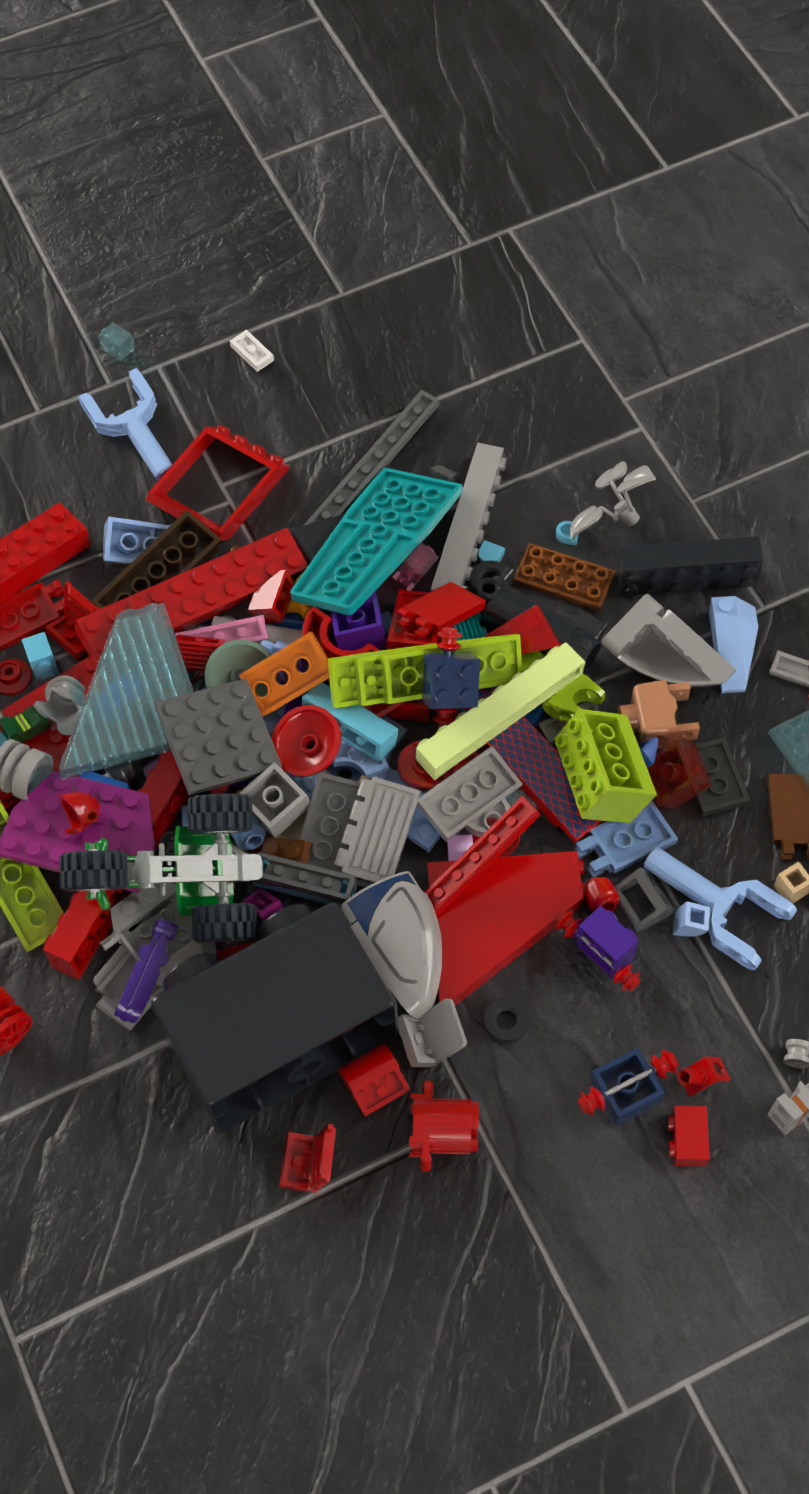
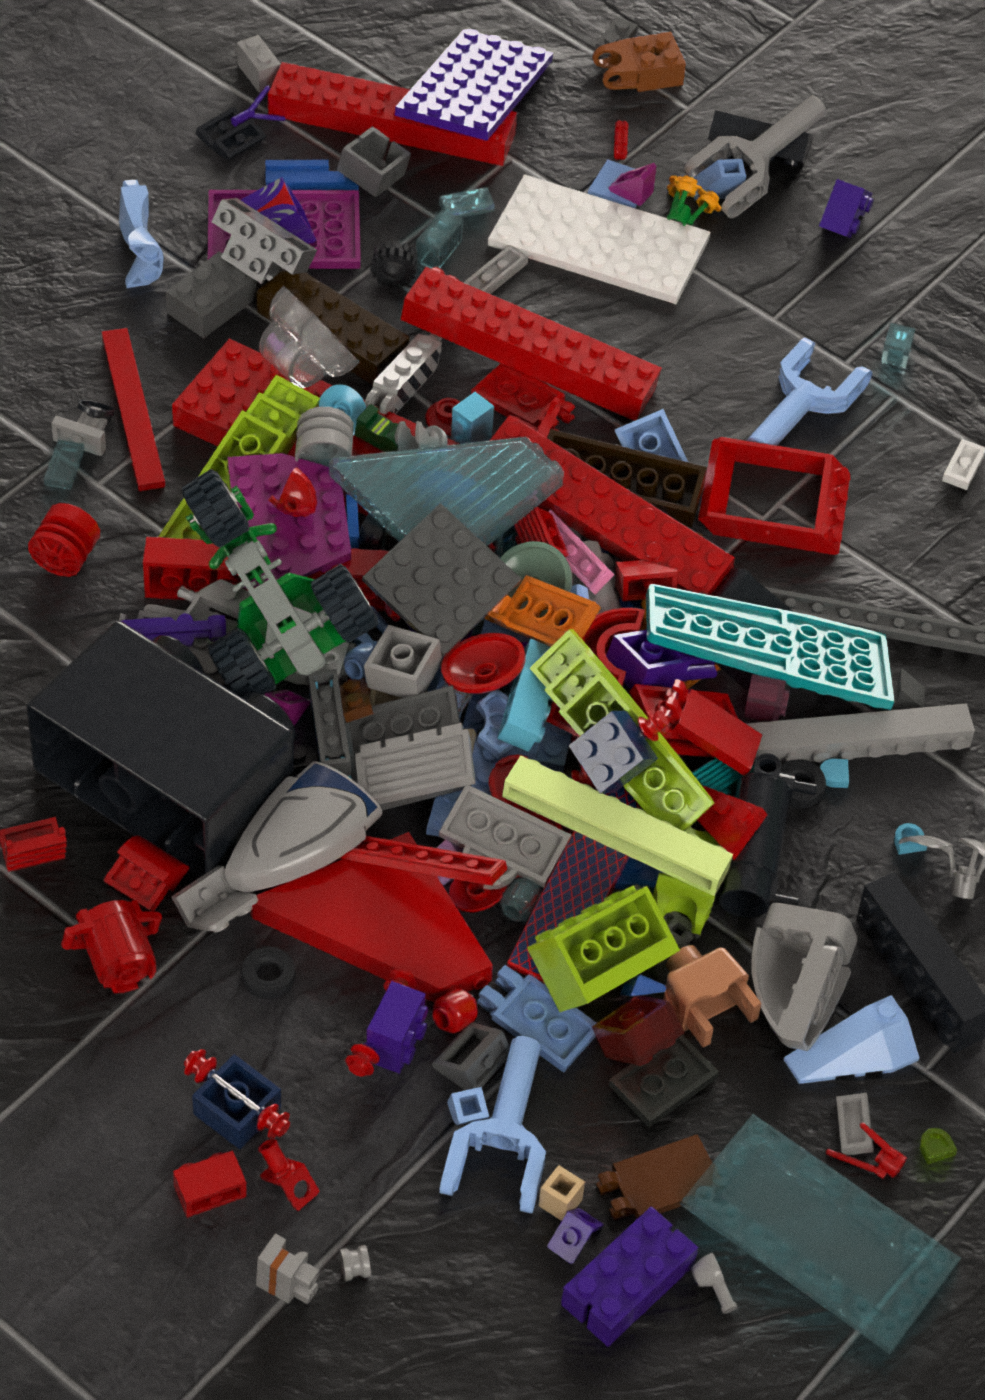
camera: 60 degrees right, 10 degrees down
(564, 577) = (845, 851): dark orange tile -> none

